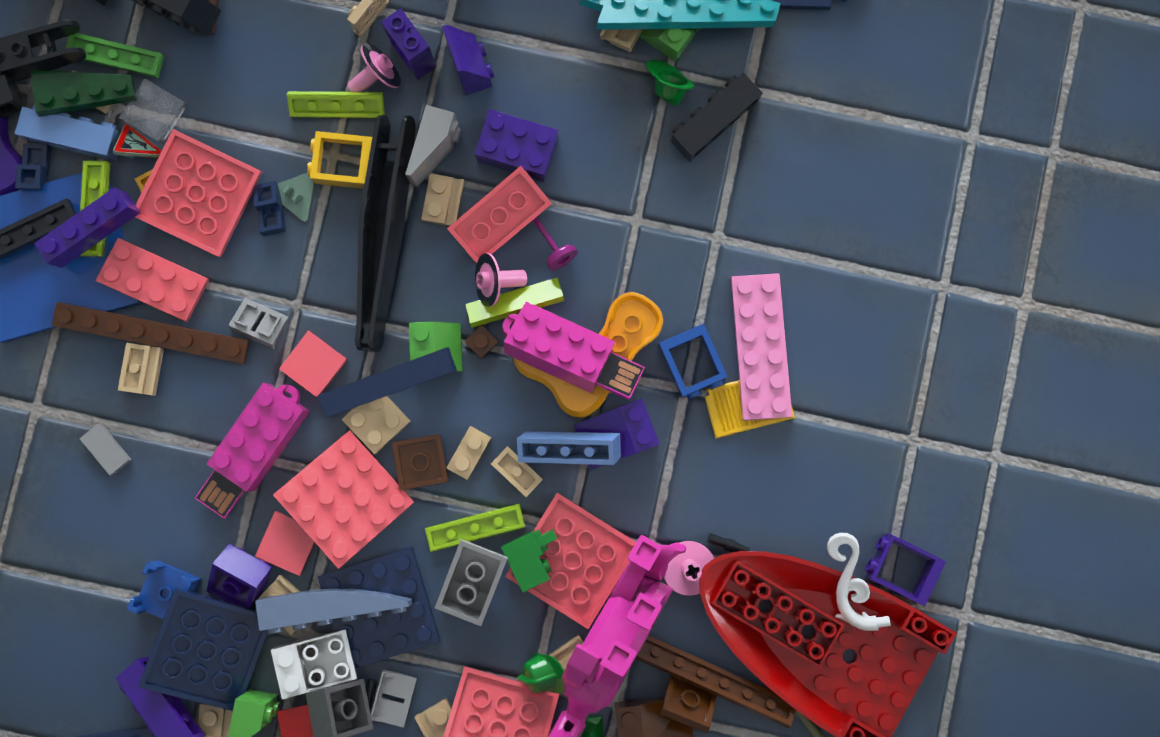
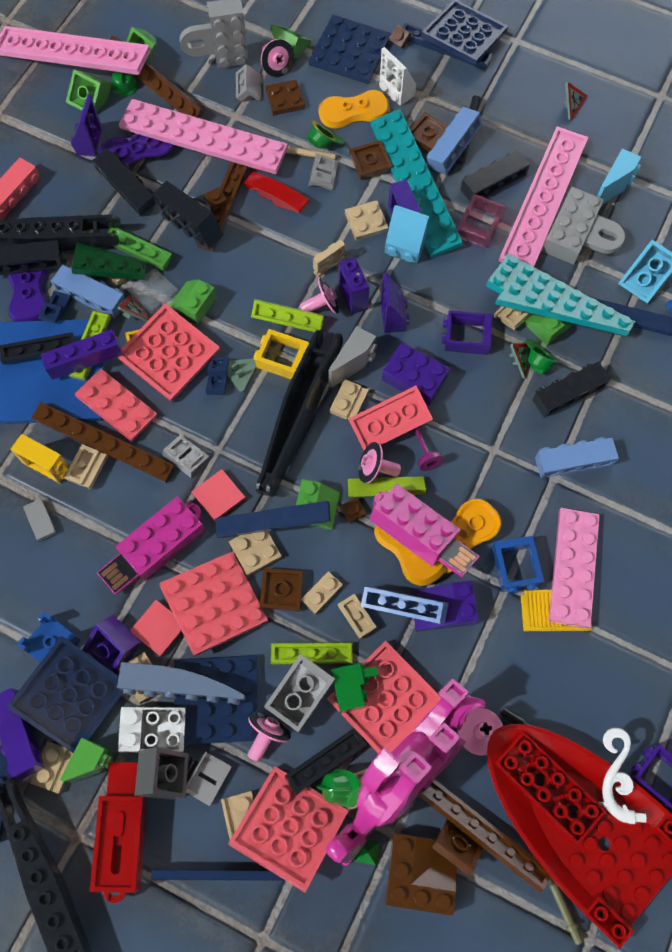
camera: 10 degrees right, 15 degrees down
(79, 376) = (40, 458): none -> yellow window
(208, 113) = (194, 300): none -> bright green slope
(446, 632) = (268, 730): none -> bright pink piece
(520, 647) = (325, 761): none -> black plate
(568, 51) = (468, 318): none -> dark purple window
(643, 85) = (521, 353): none -> piece
(738, 207) = (576, 457): none -> medium blue brick

